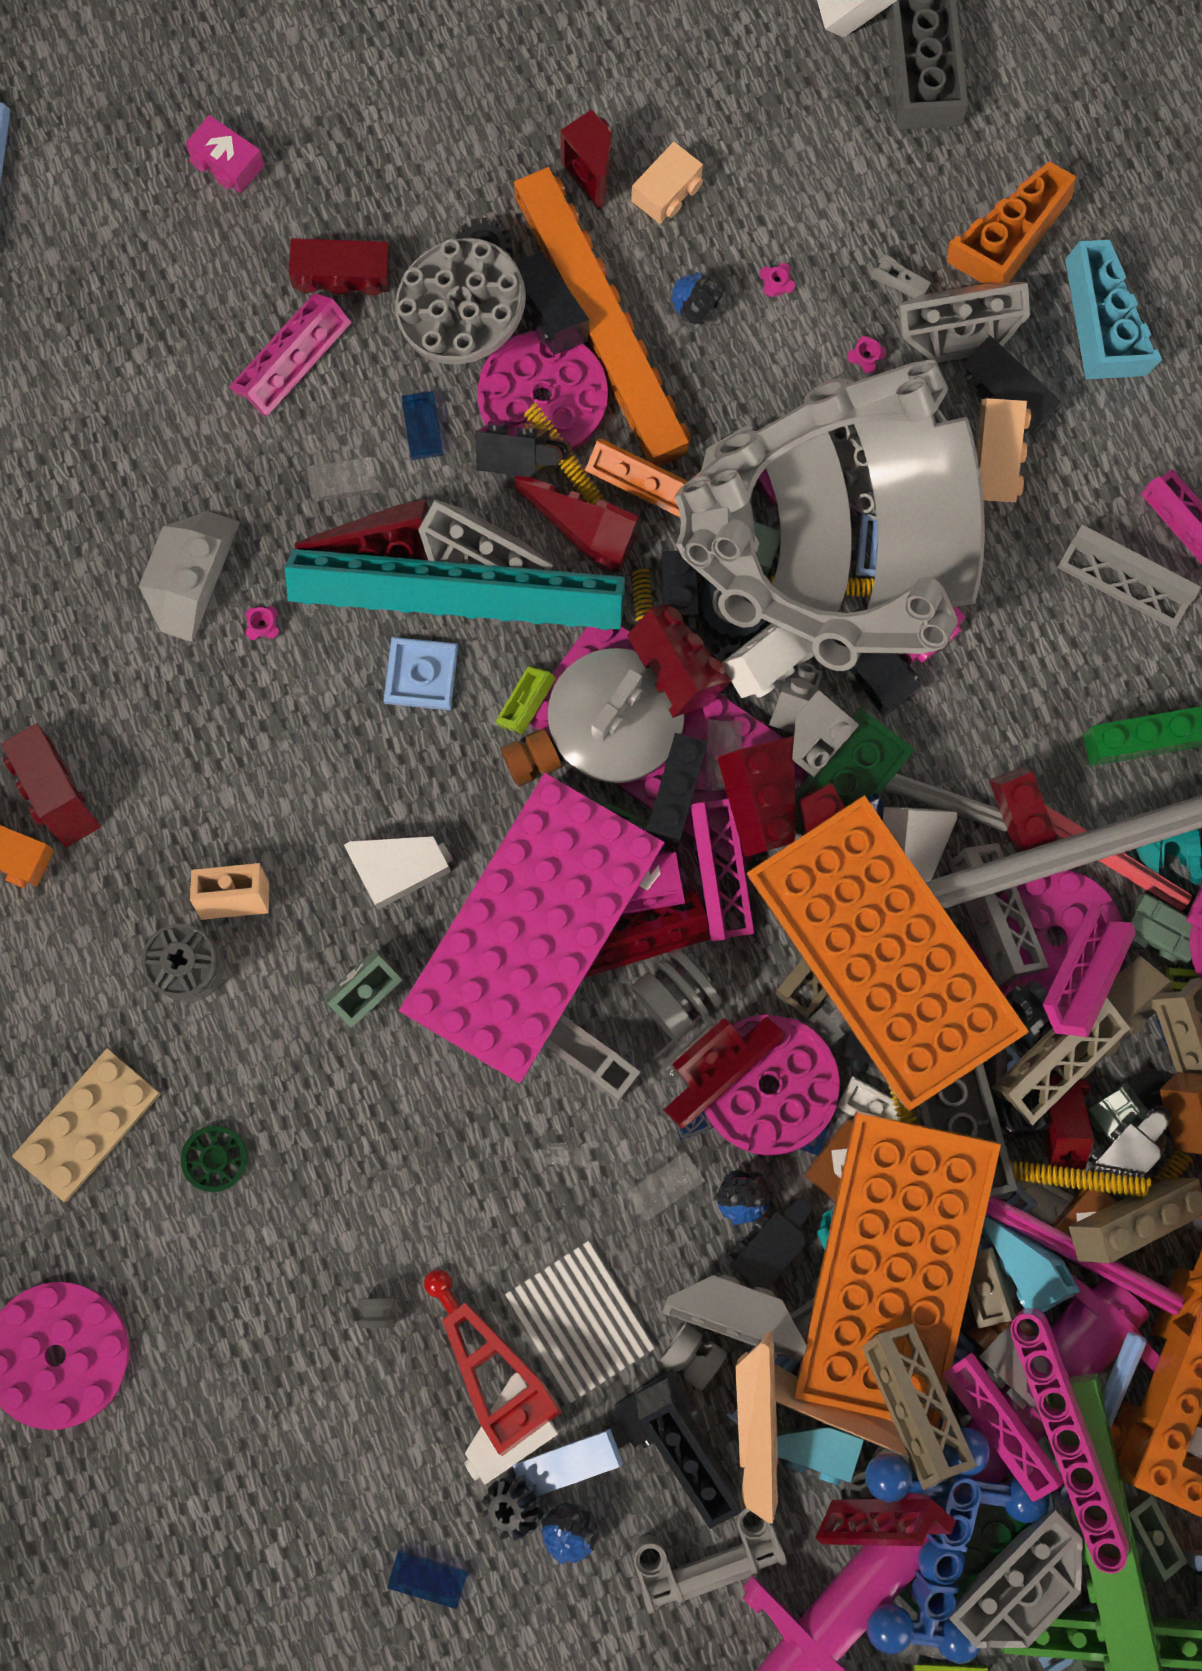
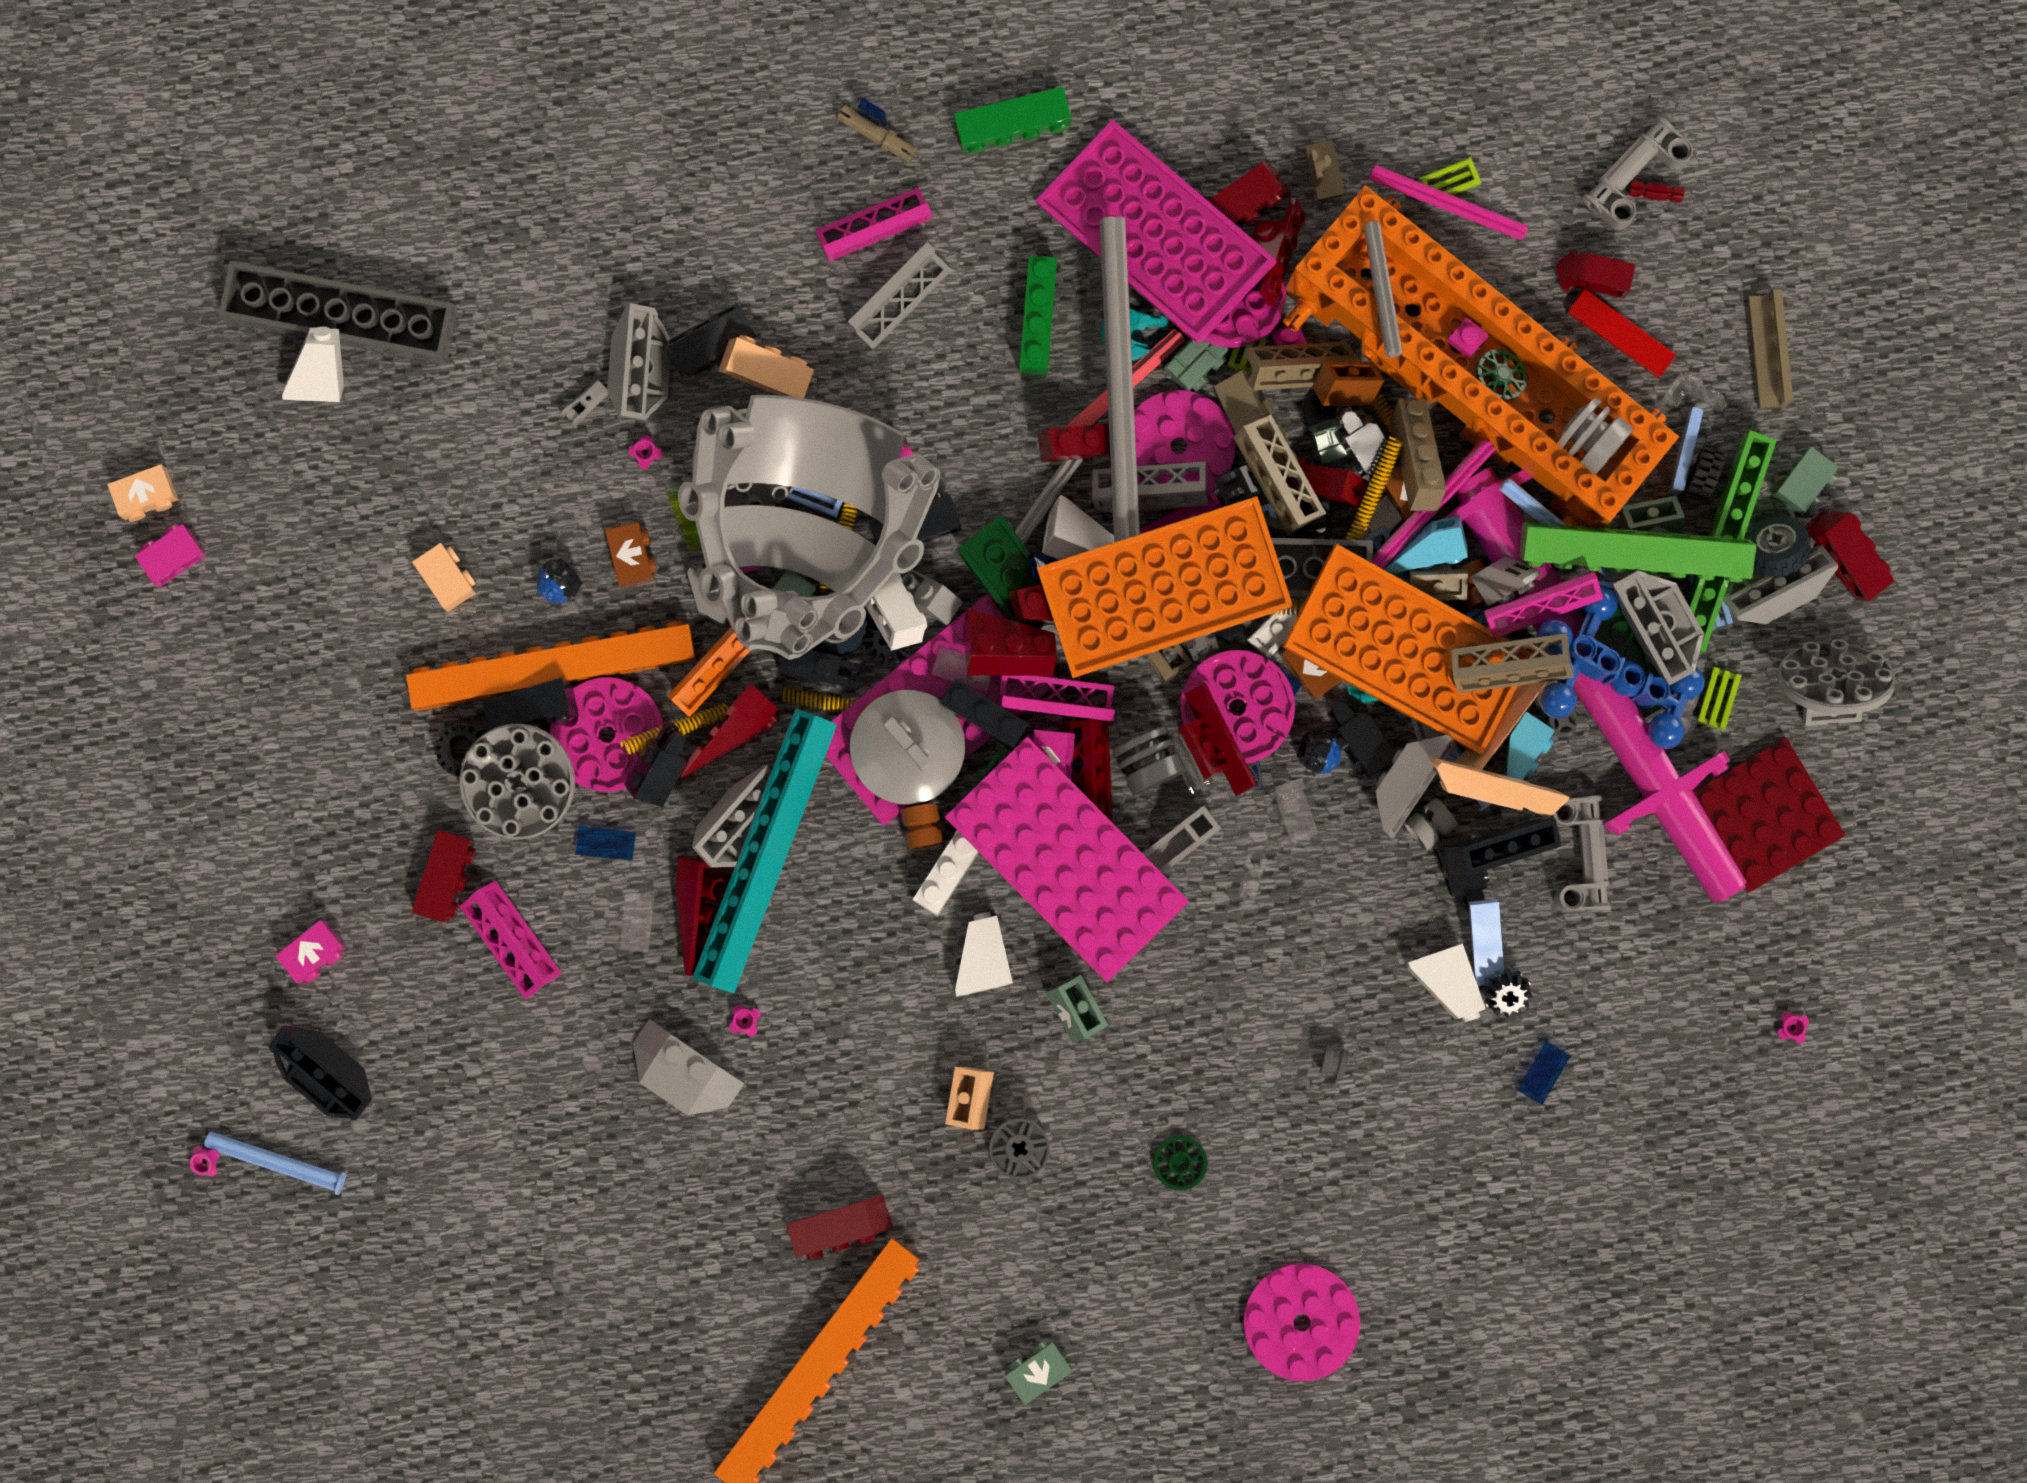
camera: 75 degrees left, 5 degrees up
(86, 1125) = (1126, 1259): tan plate -> none
(99, 194) = (321, 1072): none -> black wedge
(421, 673) = (823, 898): light blue tile -> none
(478, 797) = (946, 874): none -> white brick
(524, 1412) = (1441, 966): red plate -> none
(525, 700) = (873, 815): lime tile -> none
(569, 1533) = (1537, 954): piece -> none
(577, 1323) = (1381, 908): piece -> none
(587, 154) = (406, 637): dark red slope -> none
(678, 660) = (878, 684): dark red wedge -> none
(748, 366) = (630, 554): none -> dark orange brick
(774, 288) = (563, 514): dark pink plate -> none
(820, 732) = (969, 586): light grey slope -> none
(882, 1522) = (1589, 714): dark red fence -> none
(1010, 232) = (574, 303): orange wedge -> none
(1070, 1457) = (1576, 565): dark pink beam -> none
(1087, 972) = (1220, 431): dark pink fence -> none
(1106, 316) = (670, 243): medium azure wedge -> none

